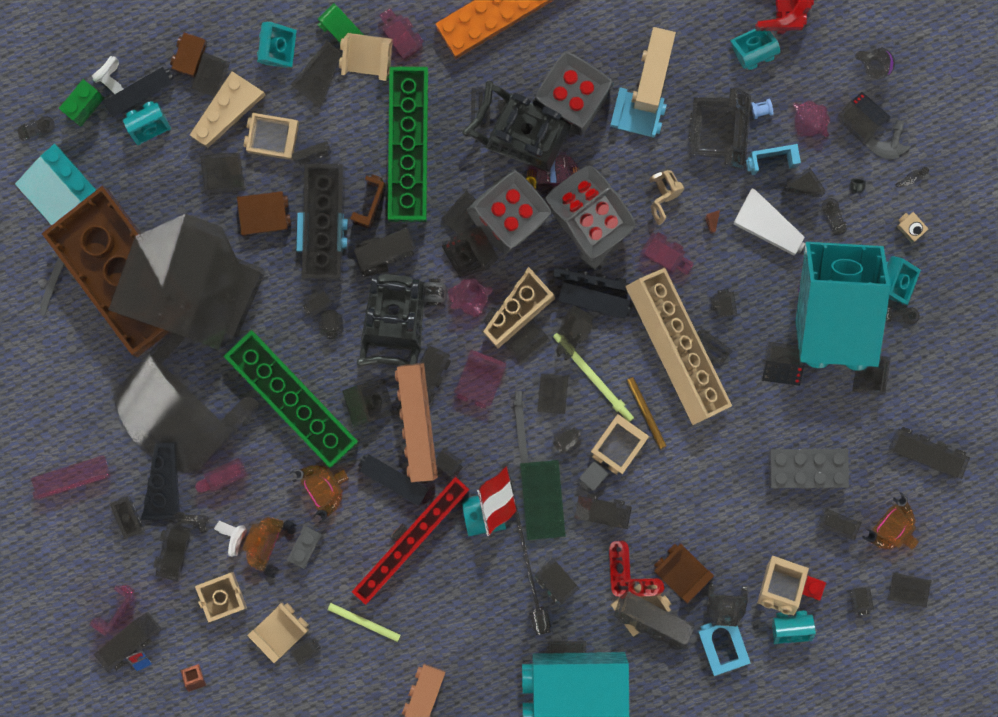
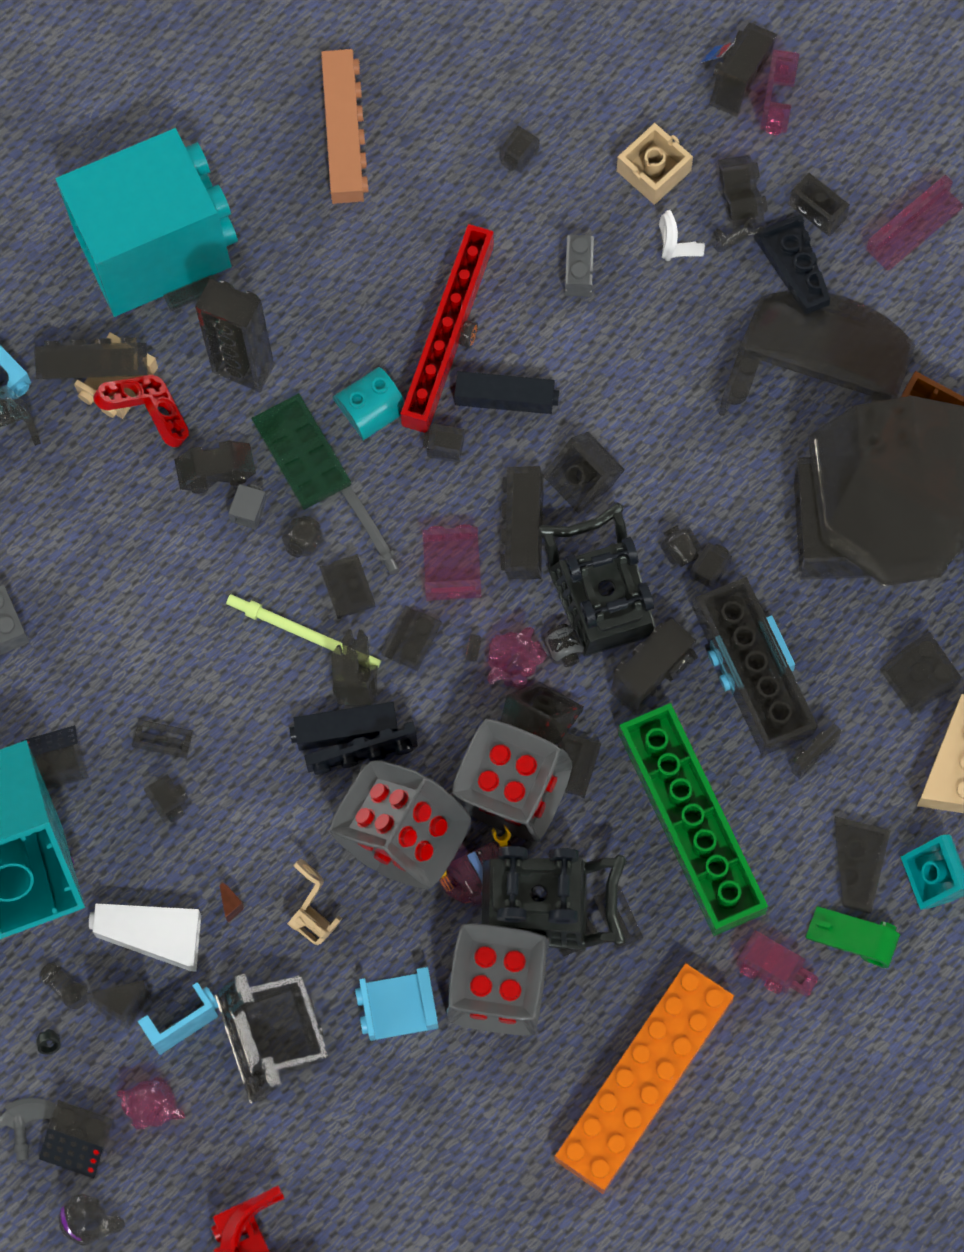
camera: 155 degrees right, 15 degrees down
(193, 678) = (642, 66): copper slope -> none
(222, 476) = (724, 304): clear pink brick -> none
(261, 542) = (636, 248): clear orange torso -> none
(263, 213) = (839, 645): reddish brown panel -> none
(270, 136) = (880, 751): window -> none
(278, 632) = (563, 157): tan panel -> none
(291, 399) = (685, 430): green brick -> none
(322, 488) = (591, 343): clear orange torso -> none
(364, 622) = (461, 215): yellowish green bar -> none
(366, 55) = (808, 914): tan panel -> none
(368, 221) = (705, 690): reddish brown panel -> none
(417, 422) = (508, 463): nougat brick -> none
(497, 507) = (356, 413): flag -> none
(519, 308) = (438, 680): tan wedge -> none
(618, 446) = (230, 559): window -> none
(646, 412) = (212, 617): pearl gold bar -> none
(654, 70) = (400, 1067): tan brick -> none
(666, 254) = (275, 830): clear pink brick -> none
(678, 346) = (205, 712): tan brick -> none
(682, 572) = (78, 441): reddish brown panel -> none
(755, 47) = (272, 1164): teal brick -> none
(762, 108) = (226, 1088): light blue bush -> none

